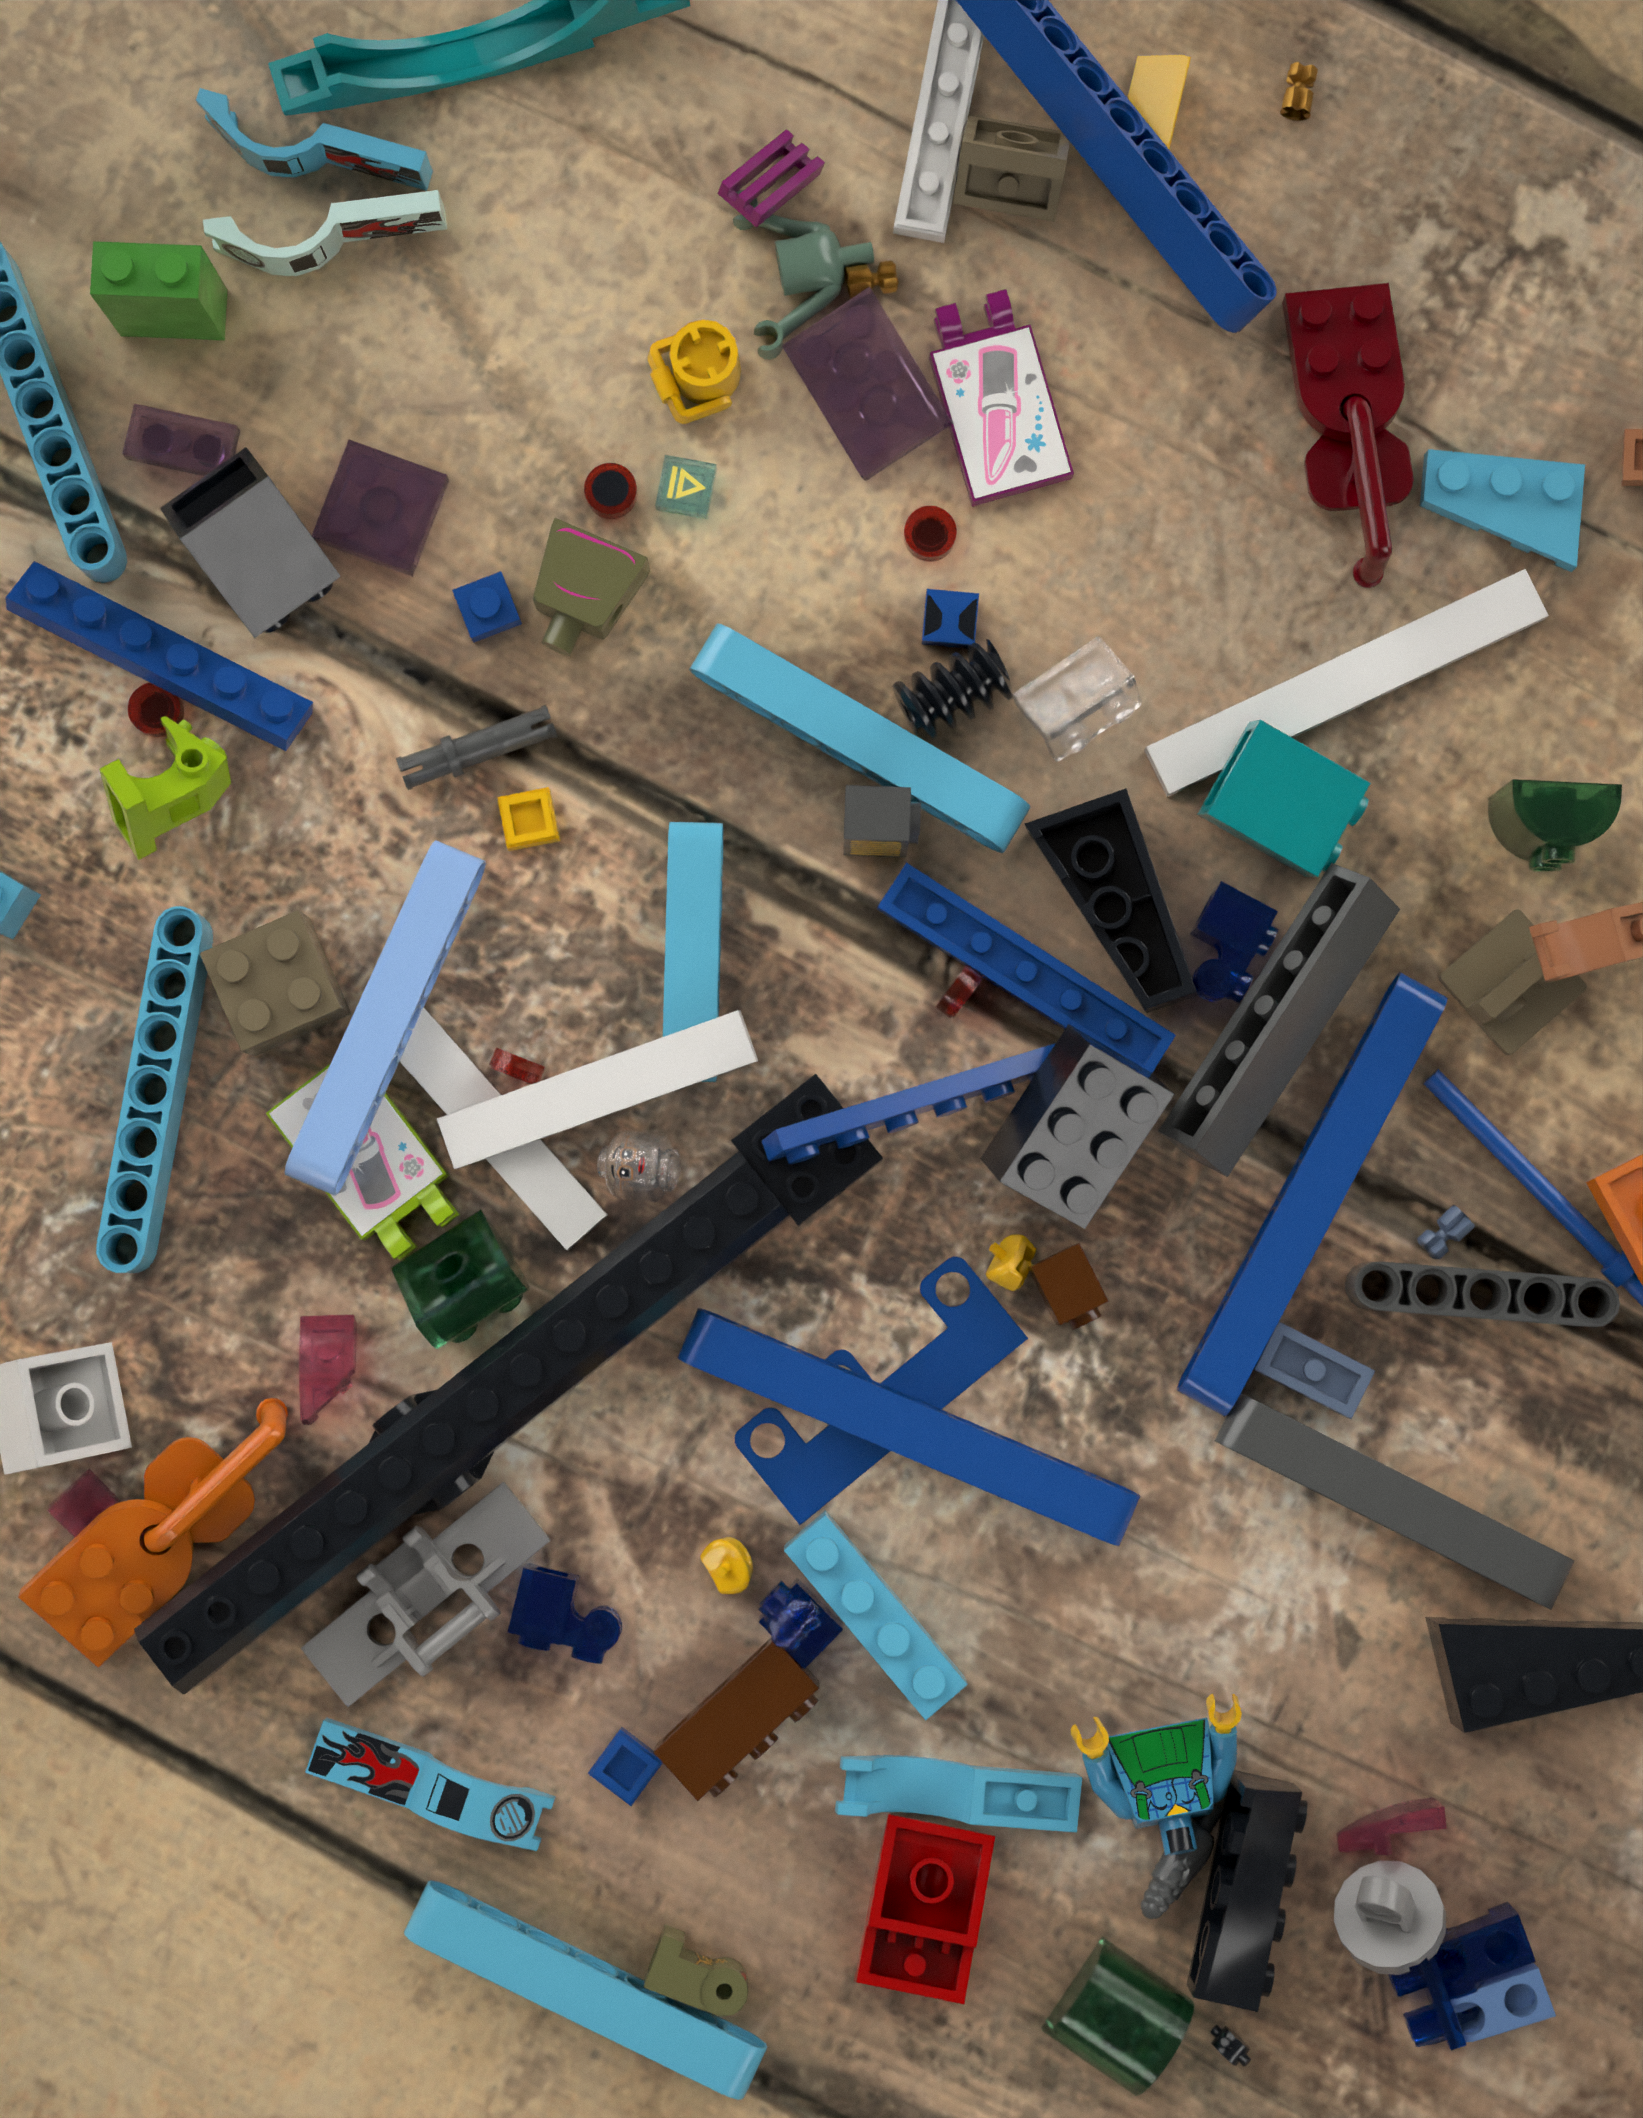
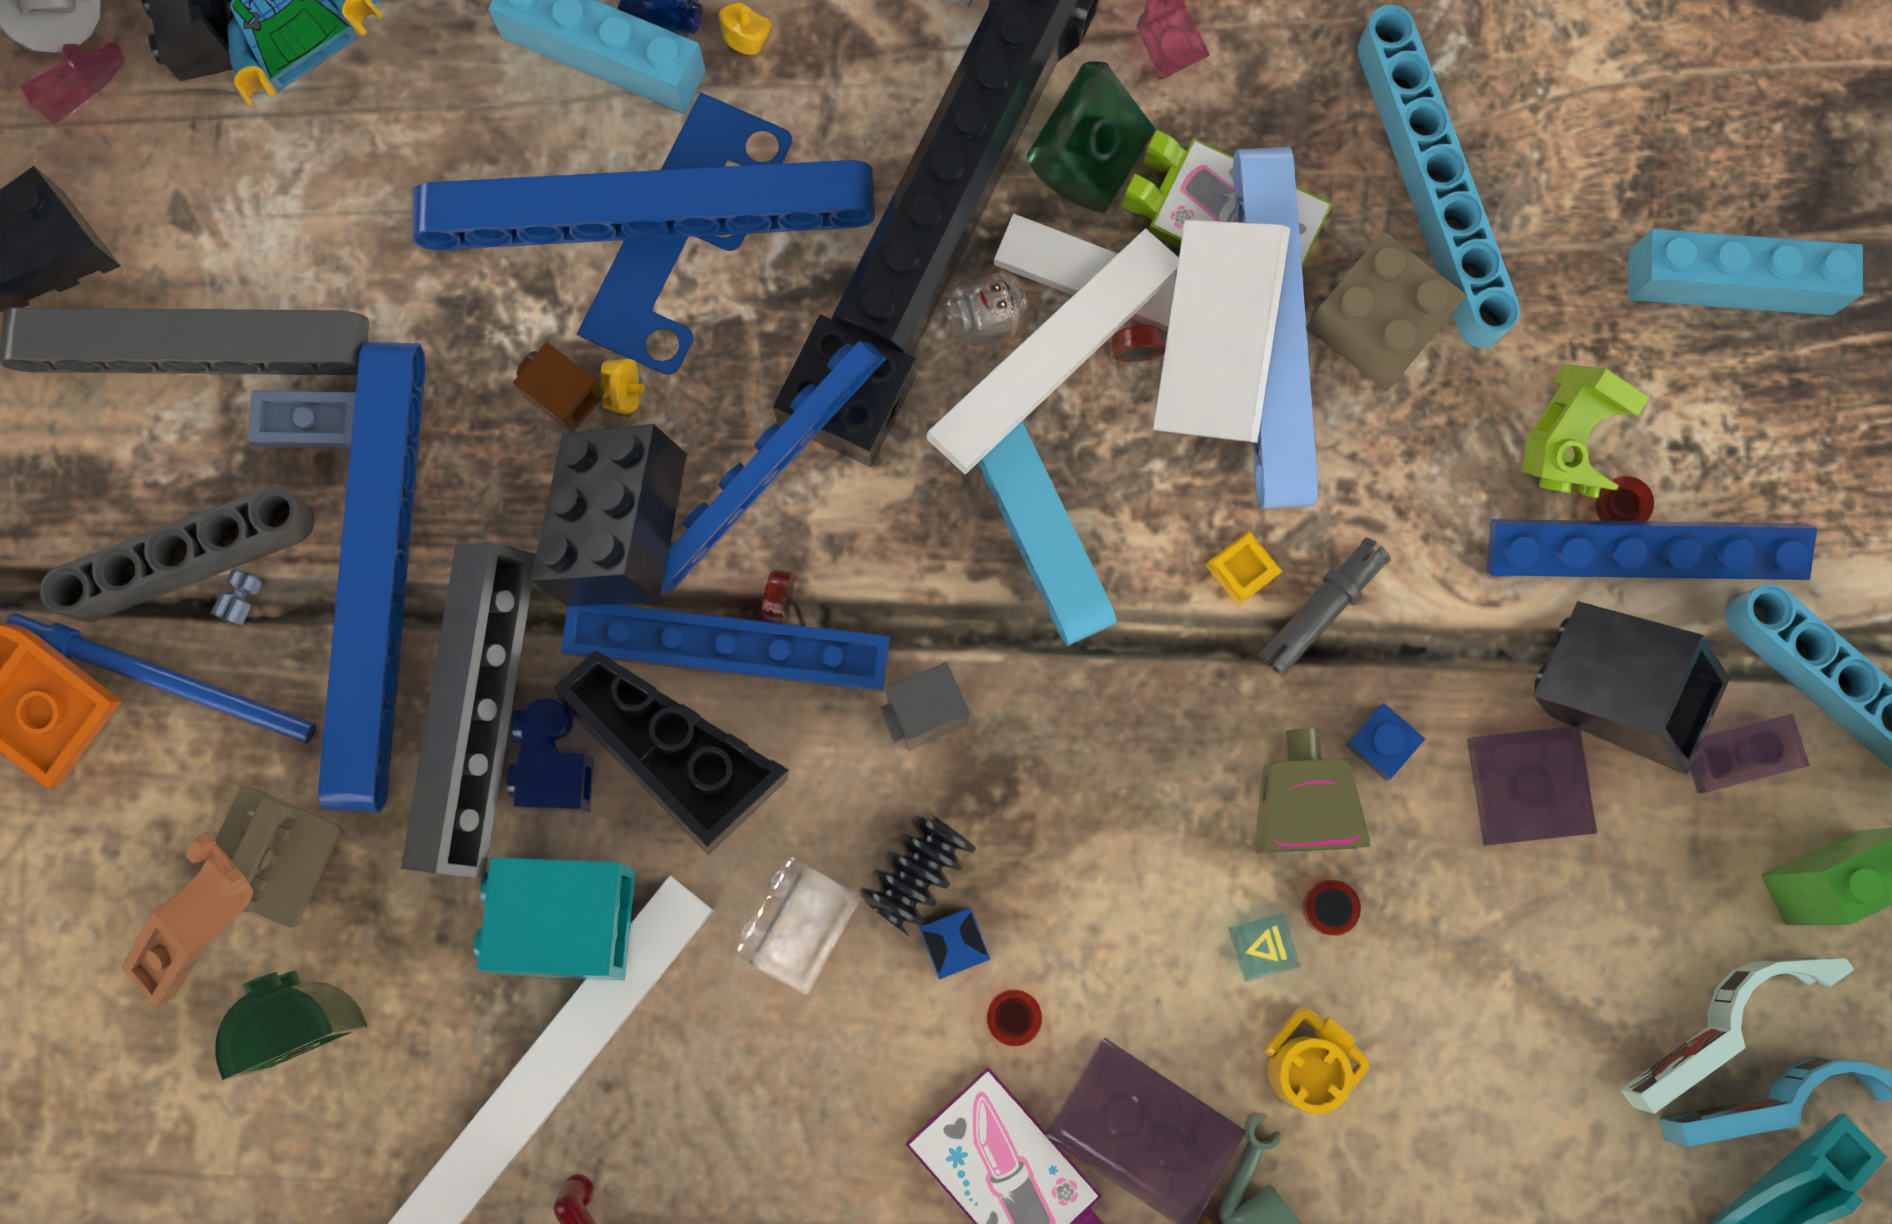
camera: 150 degrees right, 5 degrees down
(439, 1032) = (1221, 329): none -> white tile
(859, 737) = (983, 784): medium azure beam -> none

